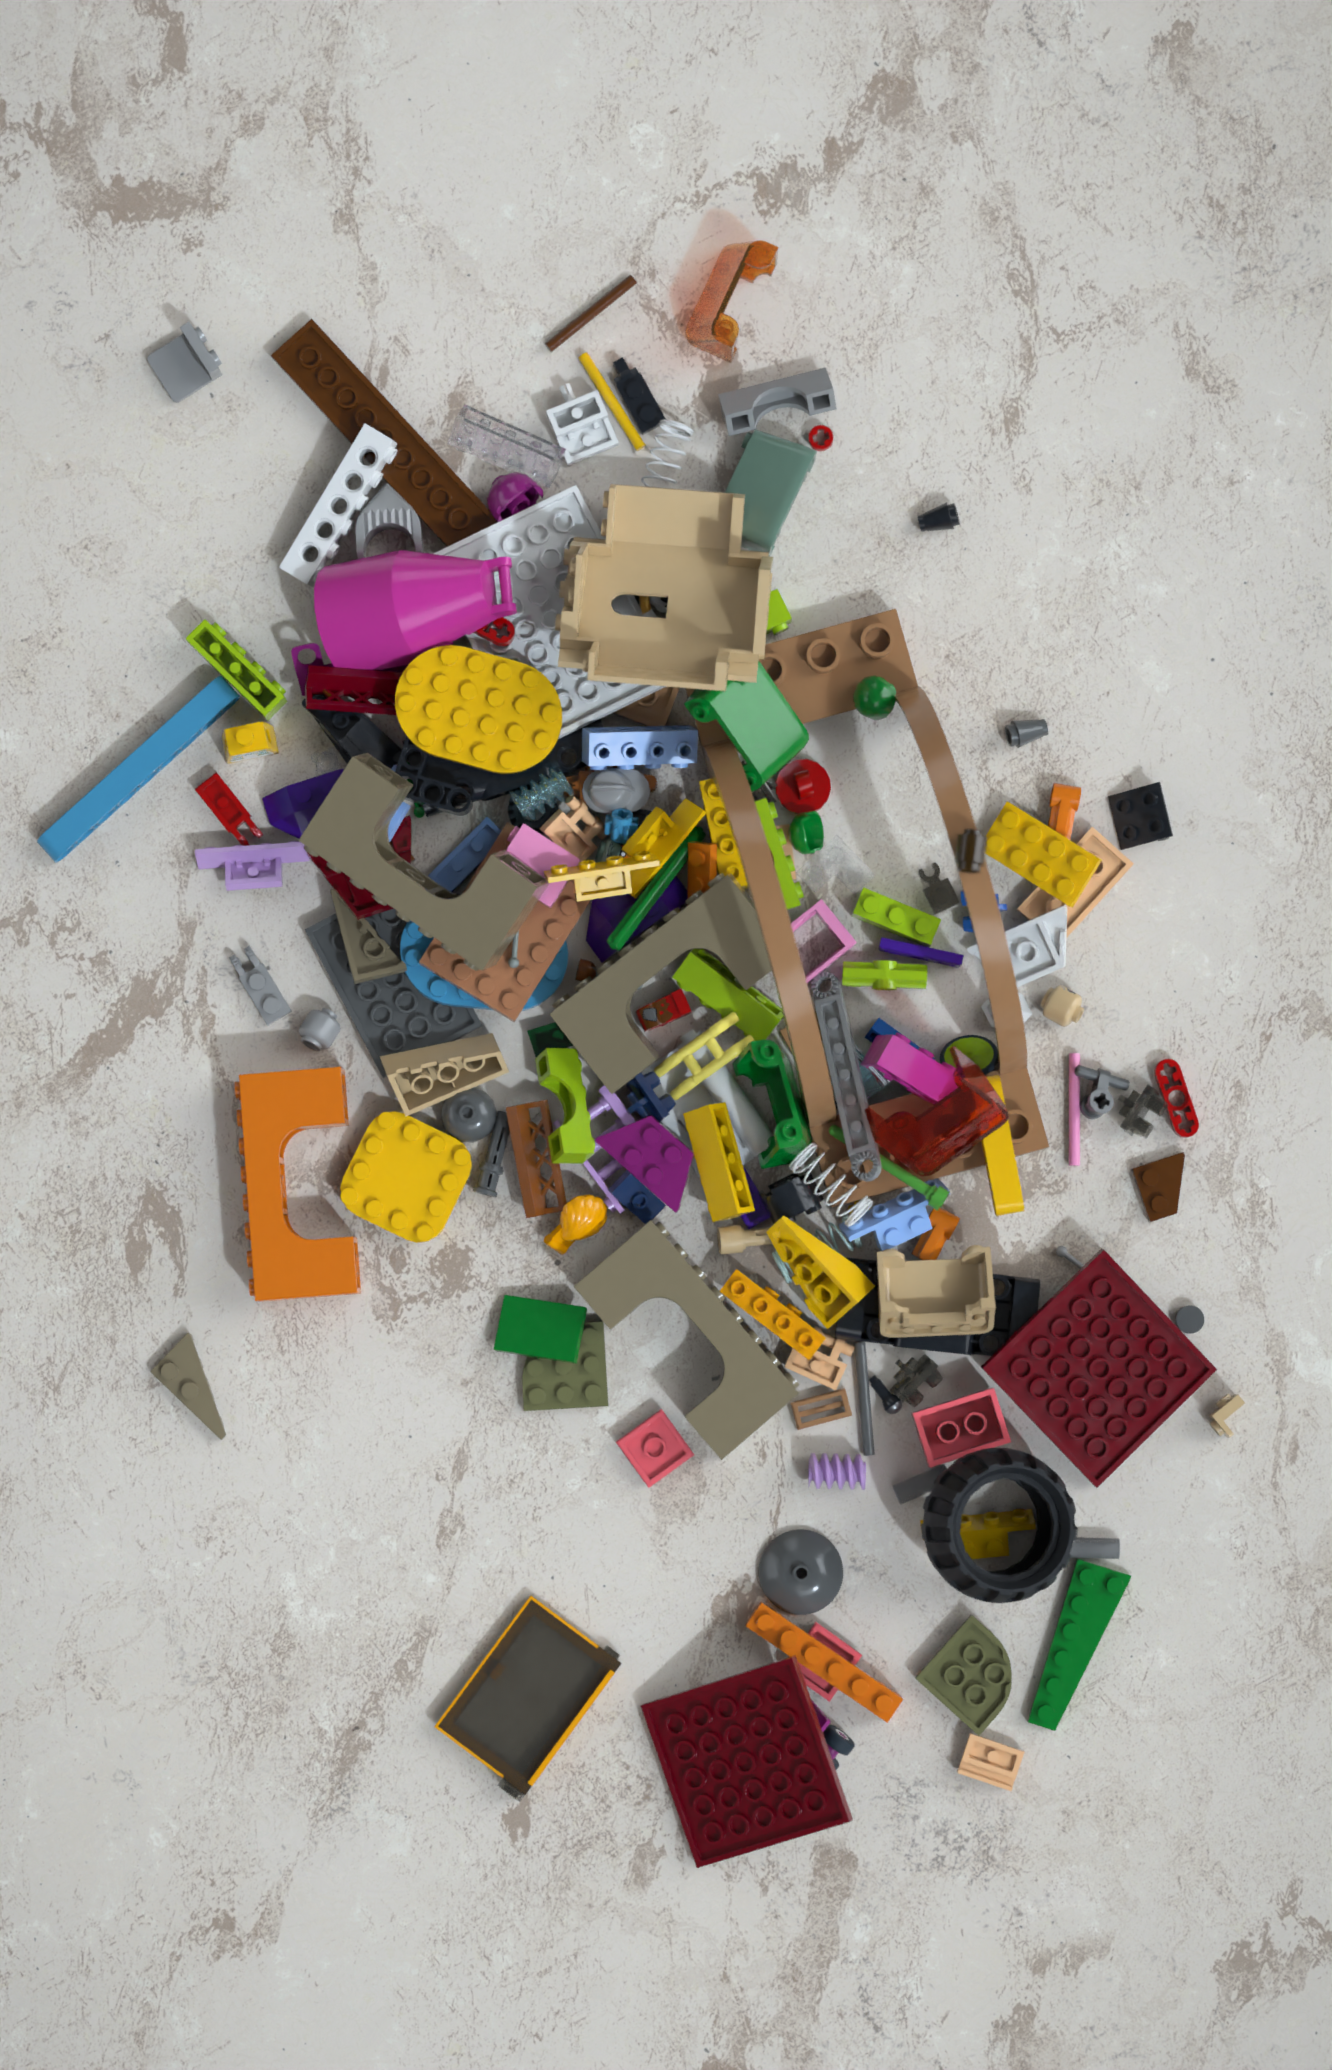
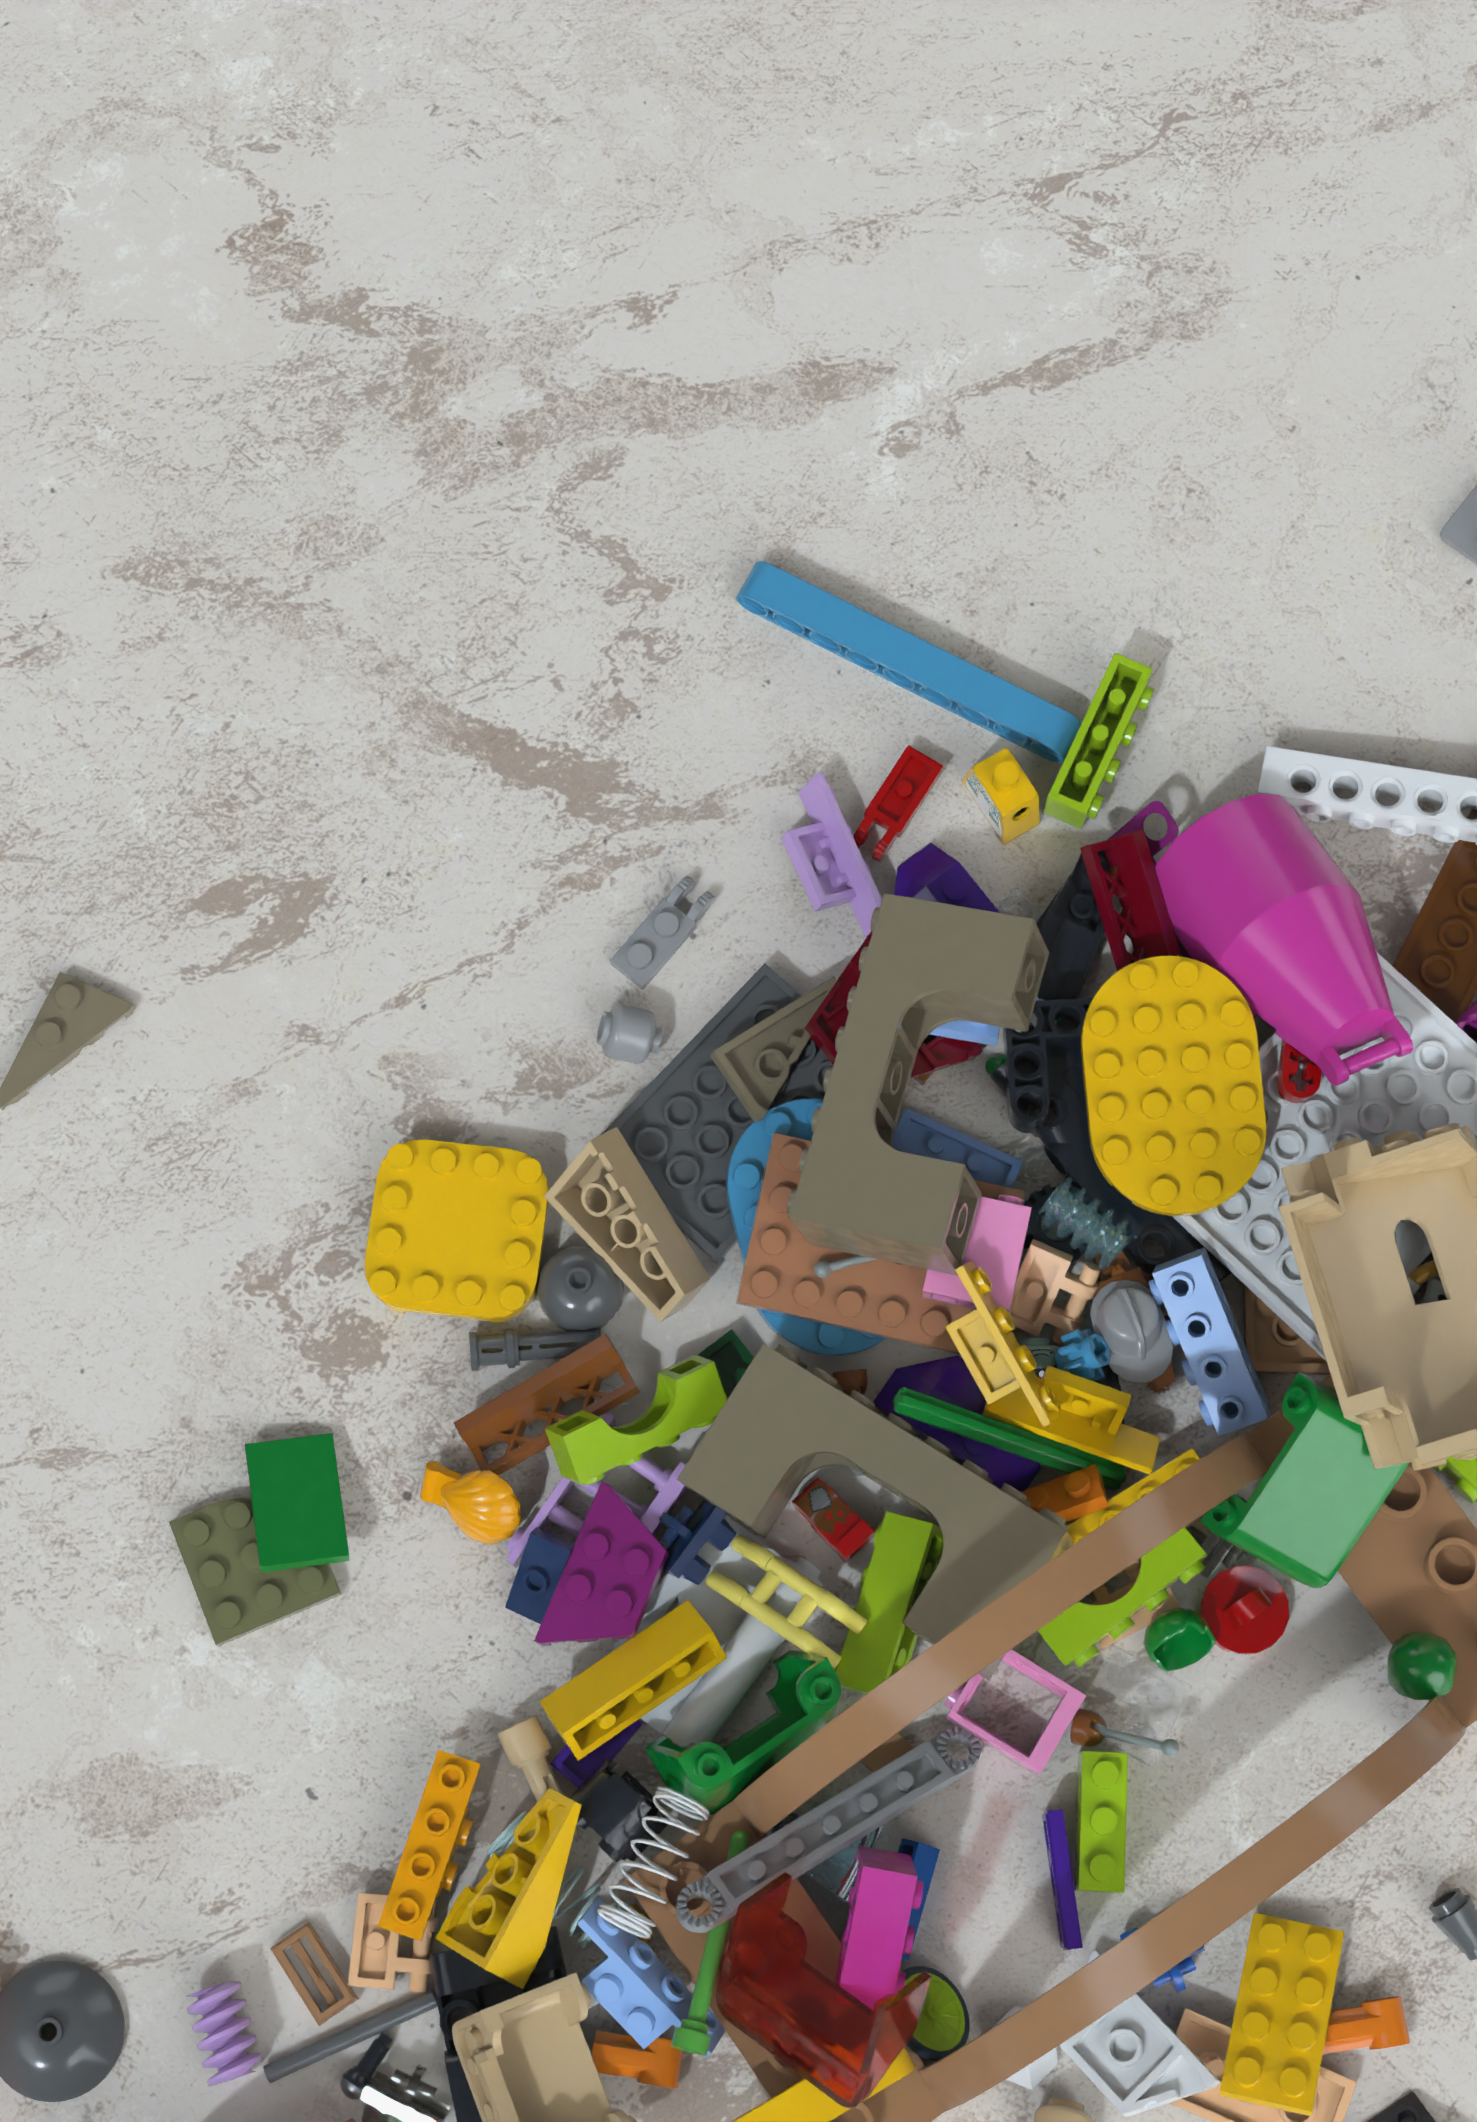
camera: 70 degrees right, 10 degrees down
(271, 1113) = (280, 1087): orange arch -> none
(386, 512) = (1400, 863): light grey animal -> none
(655, 1448) = (174, 1738): coral plate -> none
(751, 1382) = (318, 1848): dark tan arch -> none
(840, 903) = (1090, 1729): none -> hinge
(884, 975) = (1007, 1835): lime piece -> none
(939, 894) = (1162, 1877): clear smoke plate -> none
(970, 851) = (1245, 1887): dark brown brick -> none

